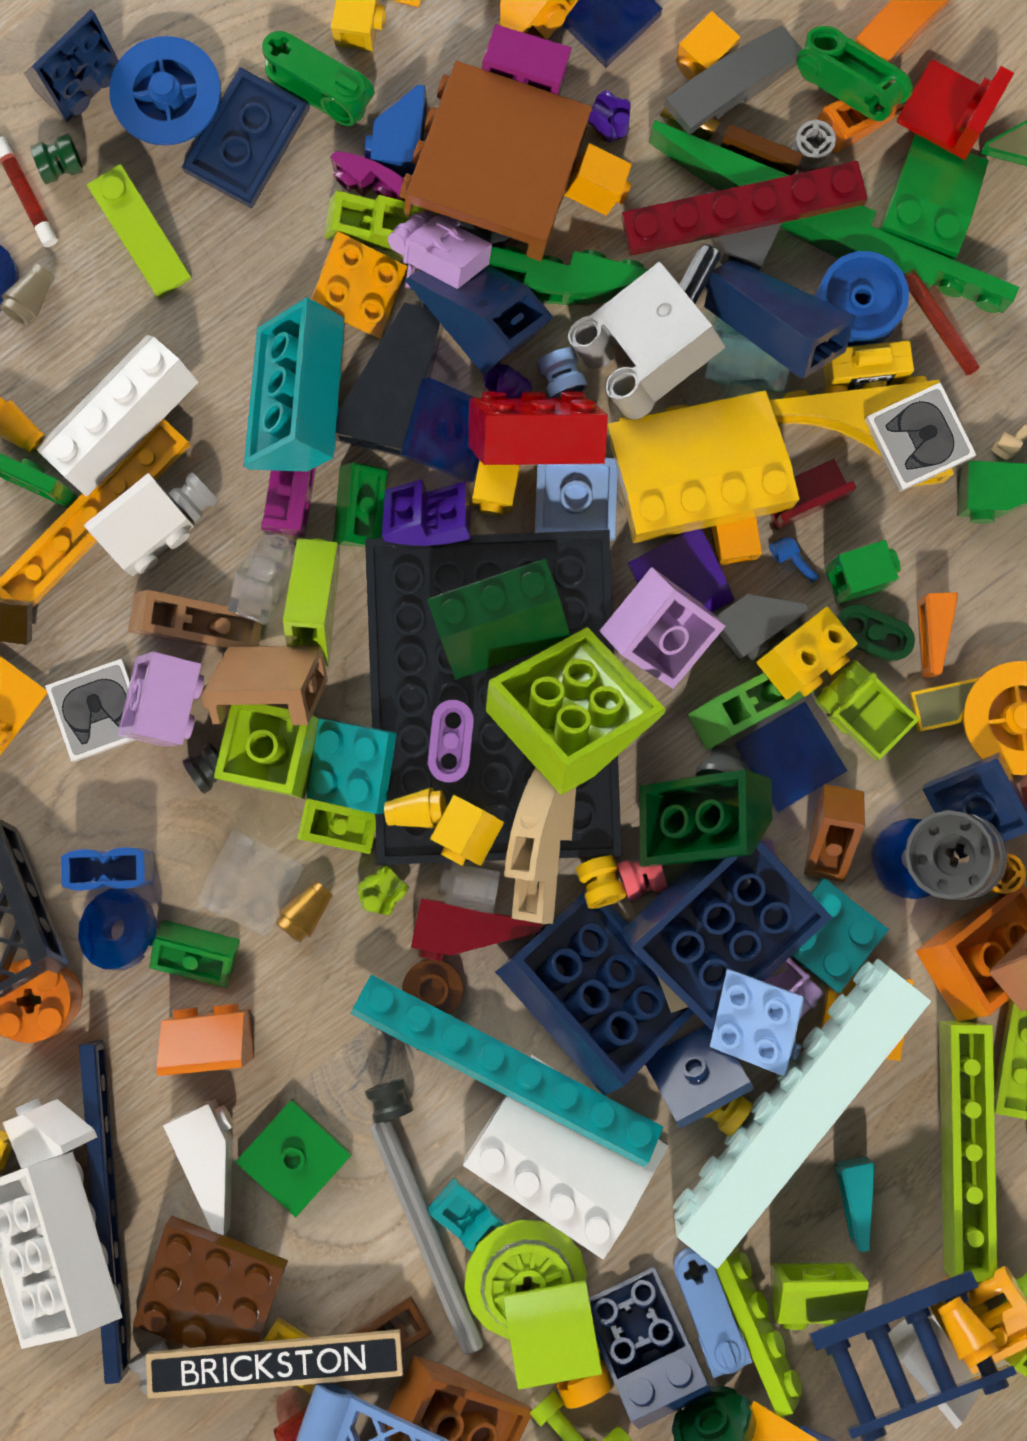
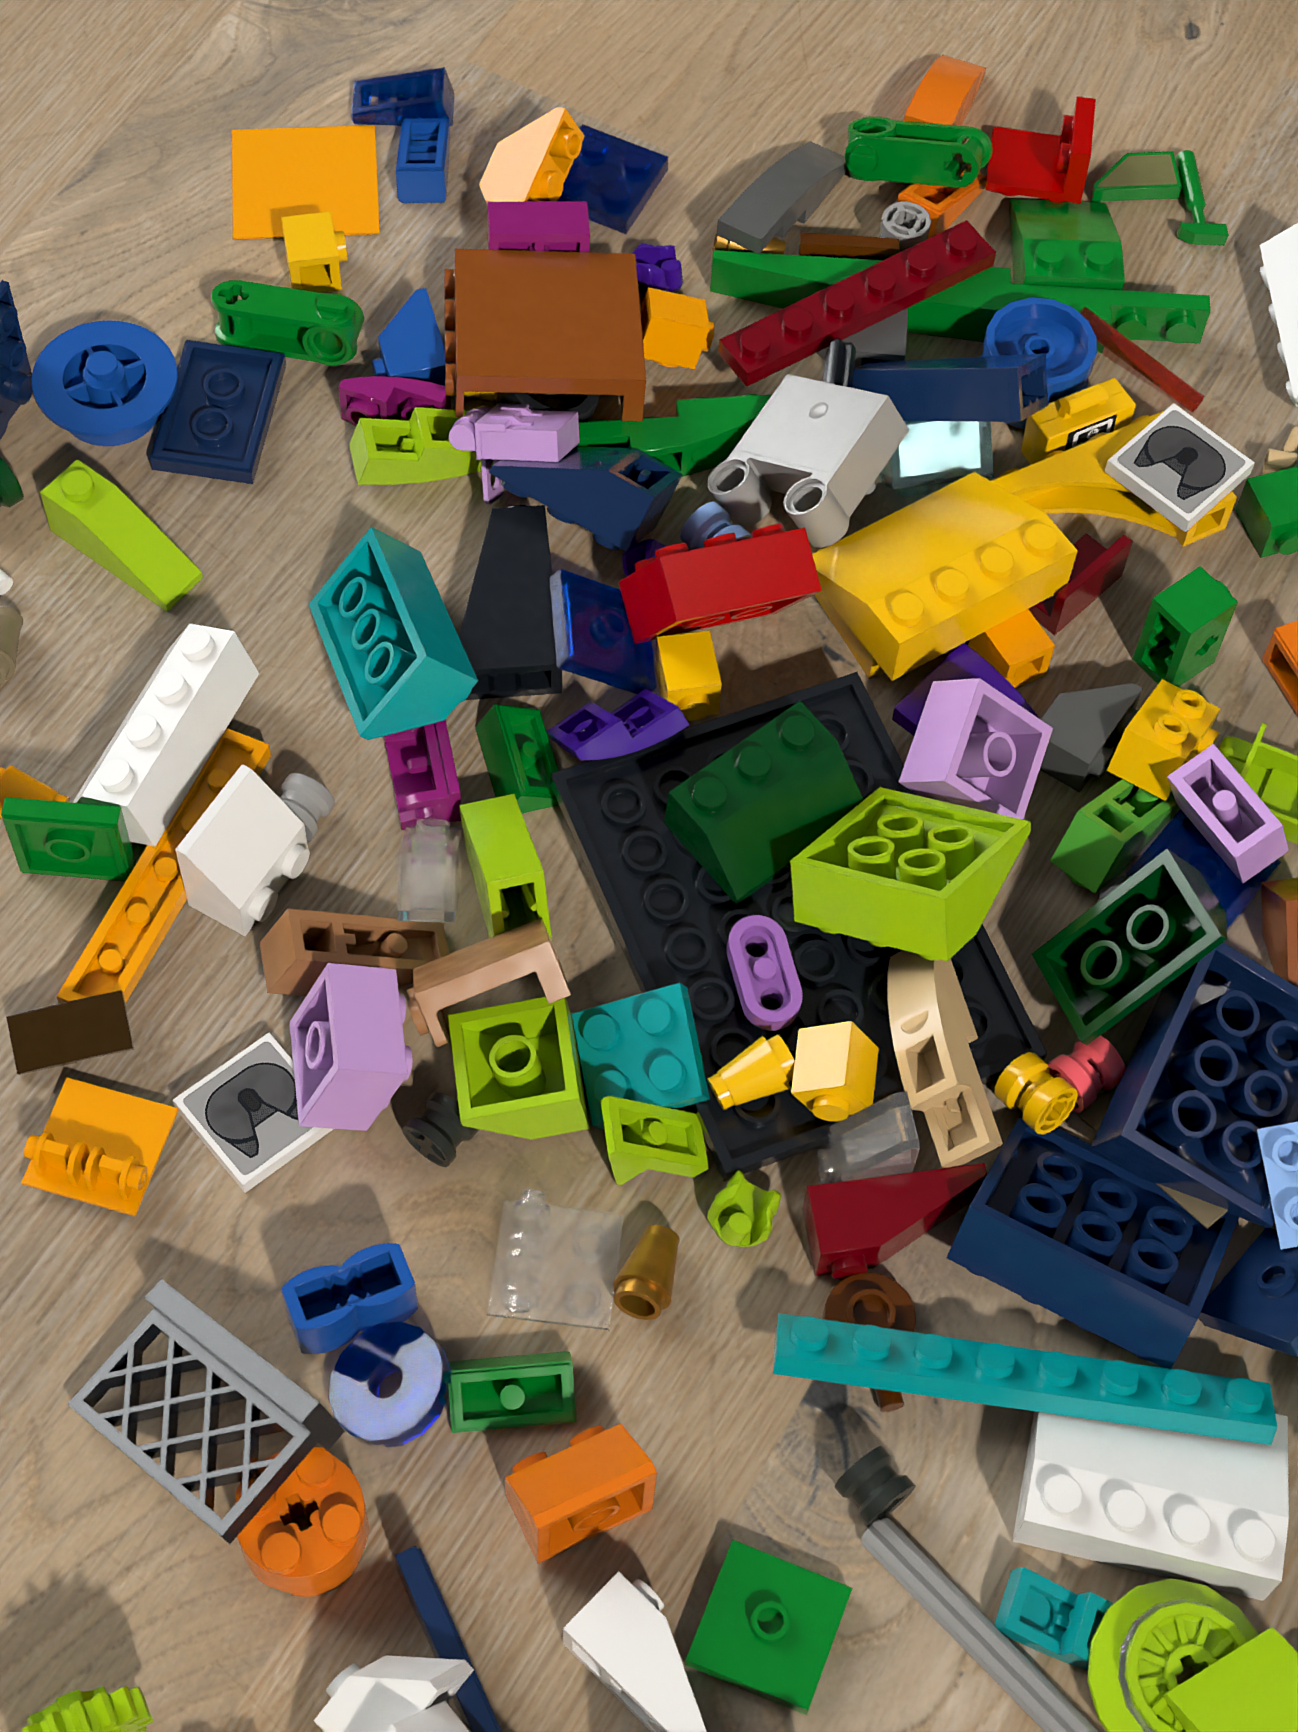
camera: 25 degrees left, 25 degrees down
(359, 284) = (425, 514): light orange hinge -> none
(576, 497) = (788, 653): light blue plate -> none
(706, 45) = (734, 171): light orange brick -> none
(787, 548) = (1081, 644): blue hand -> none
(817, 735) = (1228, 813): none -> lavender brick
(874, 630) = (1236, 694): dark green plate -> none

